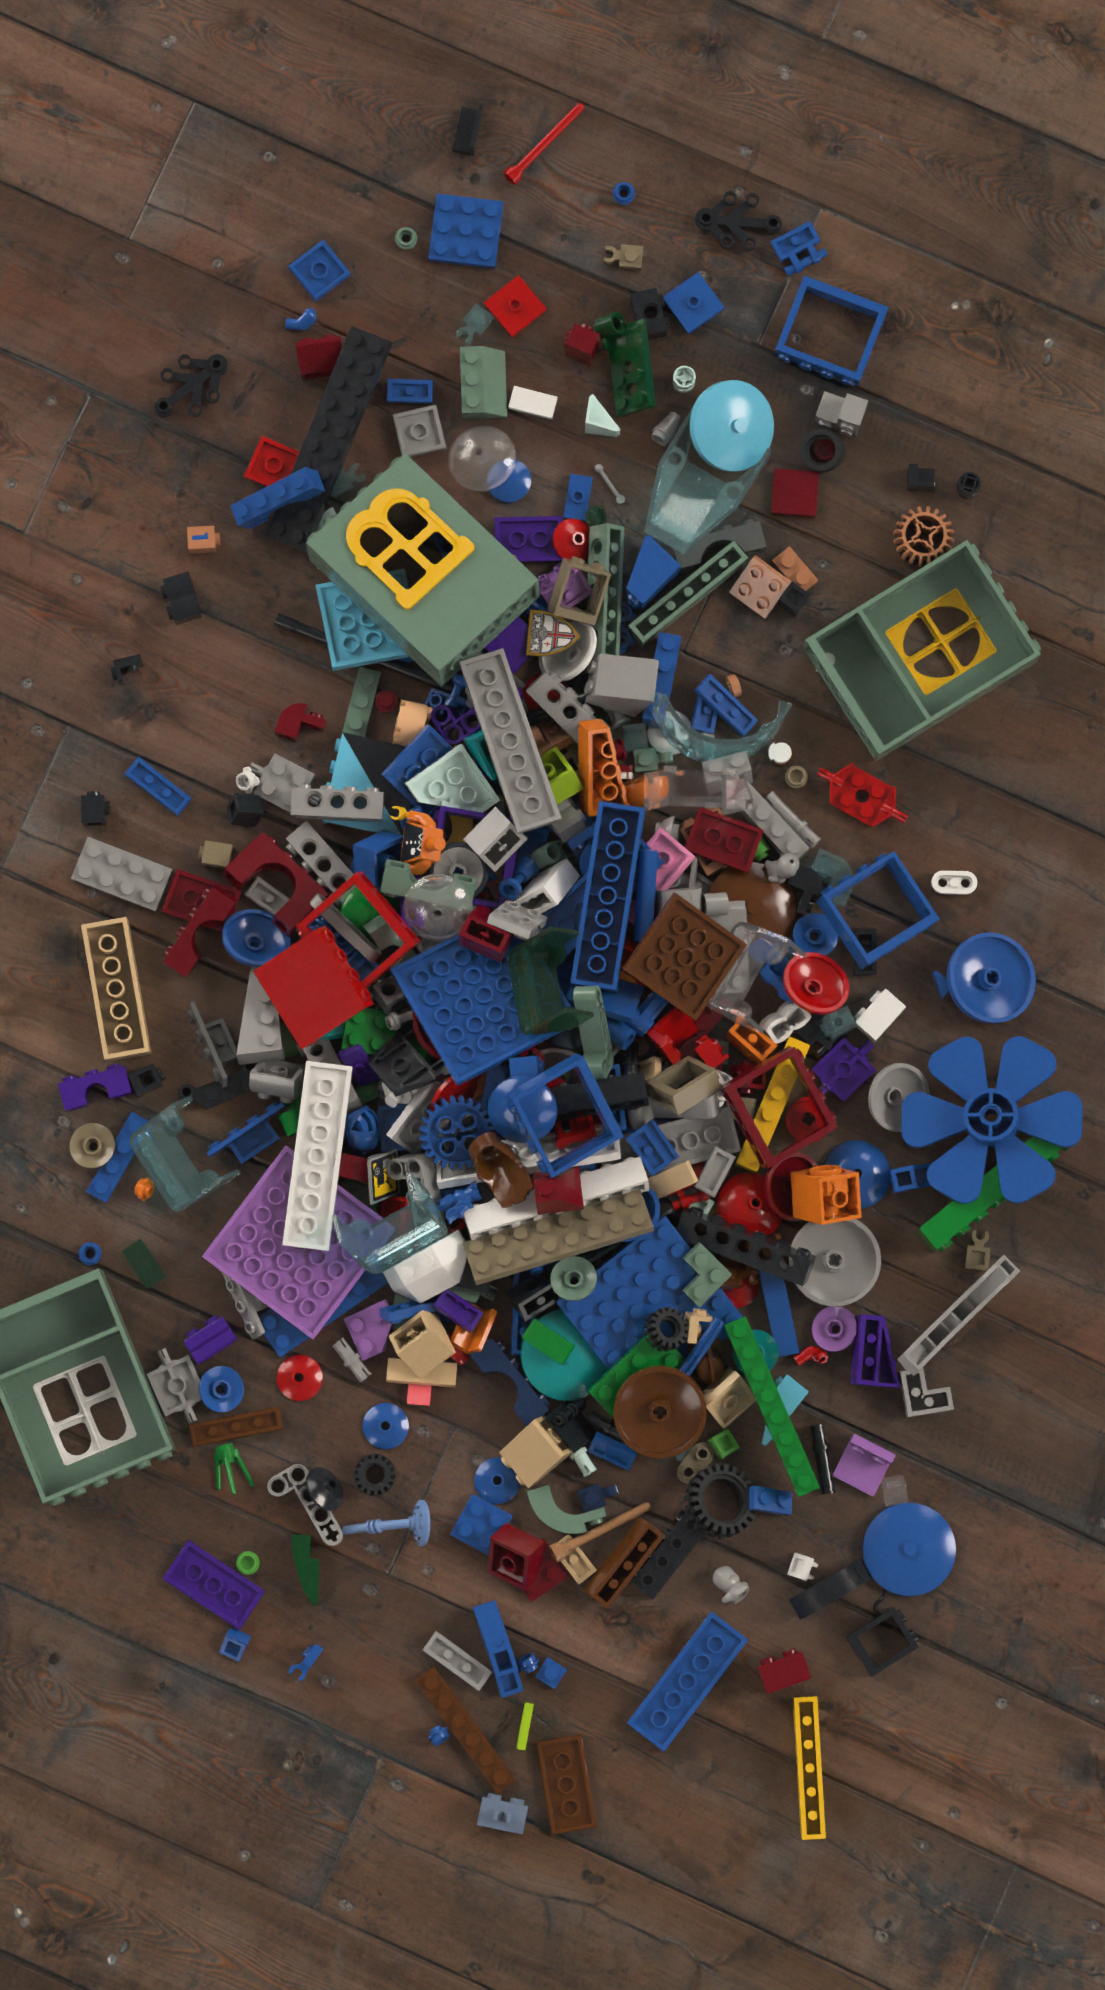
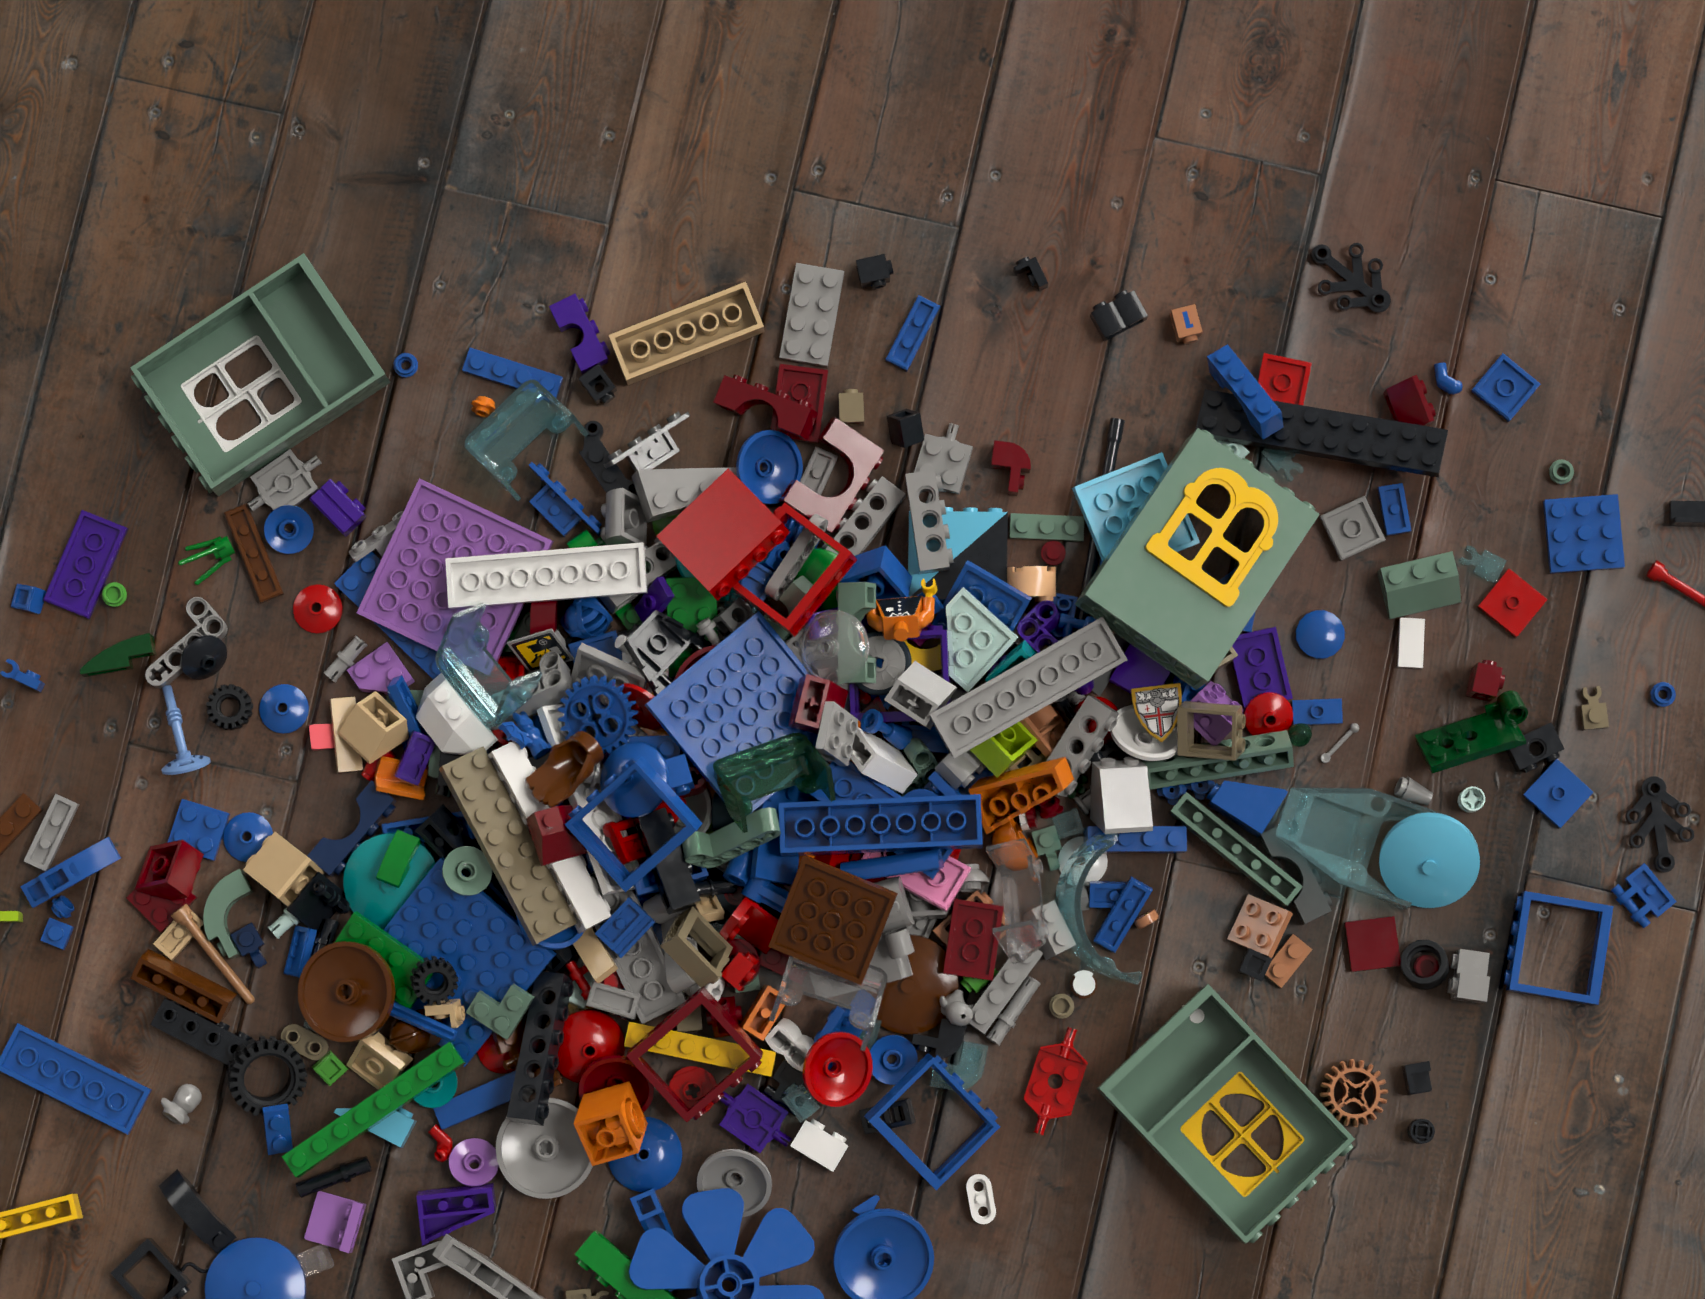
camera: 80 degrees right, 0 degrees up
(84, 1138) = (518, 332): dark tan dish -> none
(144, 1264) = (405, 423): clear green tile -> none
(247, 780) = (937, 424): white plate -> none
(487, 469) = (1330, 612): clear dish -> none
(599, 421) = (1405, 715): light aqua slope -> none
(783, 1671) = (99, 1177): dark red brick -> none
(801, 1567) = (215, 1176): white tile -> none

